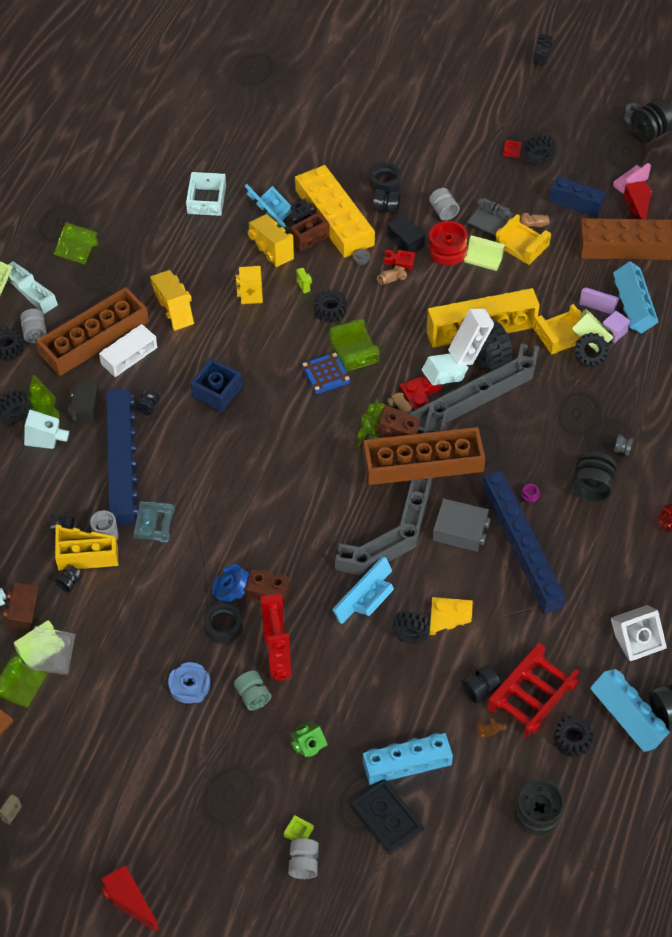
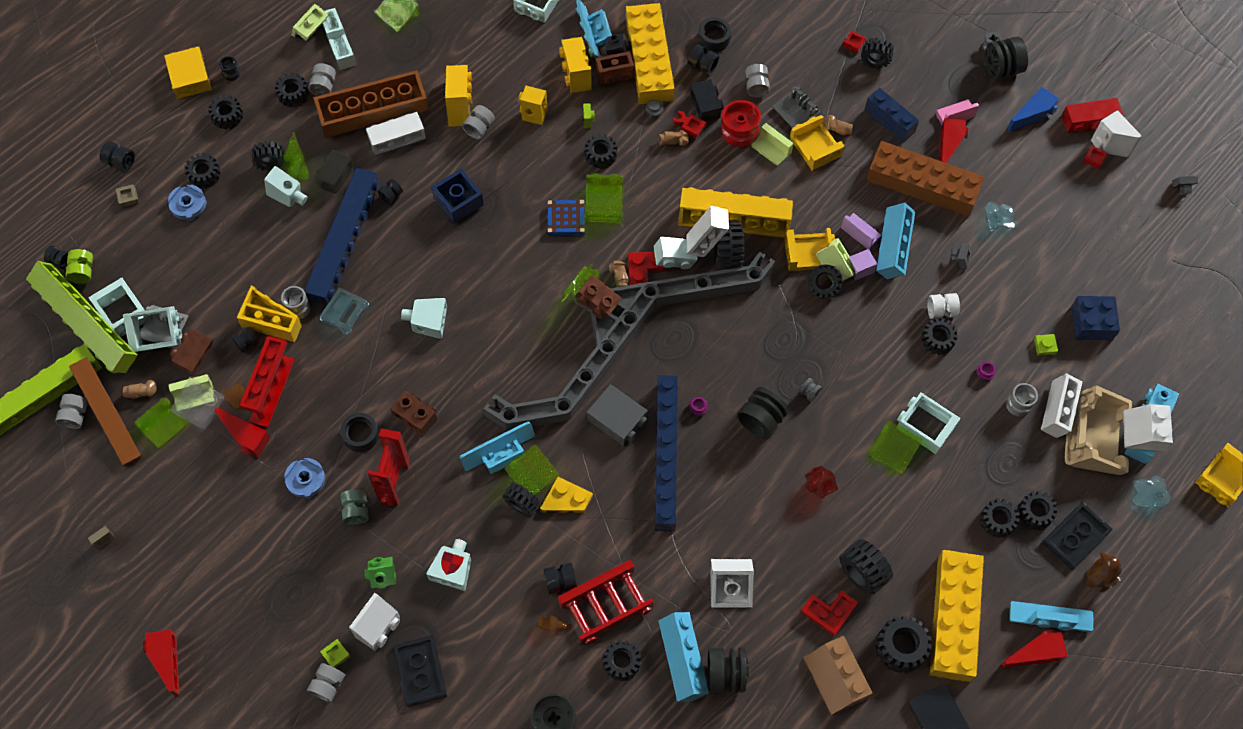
camera: 20 degrees right, 10 degrees up
(67, 522) = (264, 286): black wheel -> none
(84, 632) = (234, 395): none -> clear orange tile
(109, 663) = (248, 436): none -> red slope
(114, 605) = (267, 382): none -> red fence
(203, 316) = (476, 123): none -> light grey wheel
(230, 584) = (381, 397): blue plate -> none
(238, 499) = (427, 316): none -> light aqua torso
(326, 786) = (375, 622): none -> white slope
(373, 711) = (451, 566): none -> light aqua torso
(406, 596) = (532, 470): none -> clear neon green hinge
(407, 758) = (461, 624): medium azure brick -> none
(423, 456) = (607, 336): dark orange brick -> none

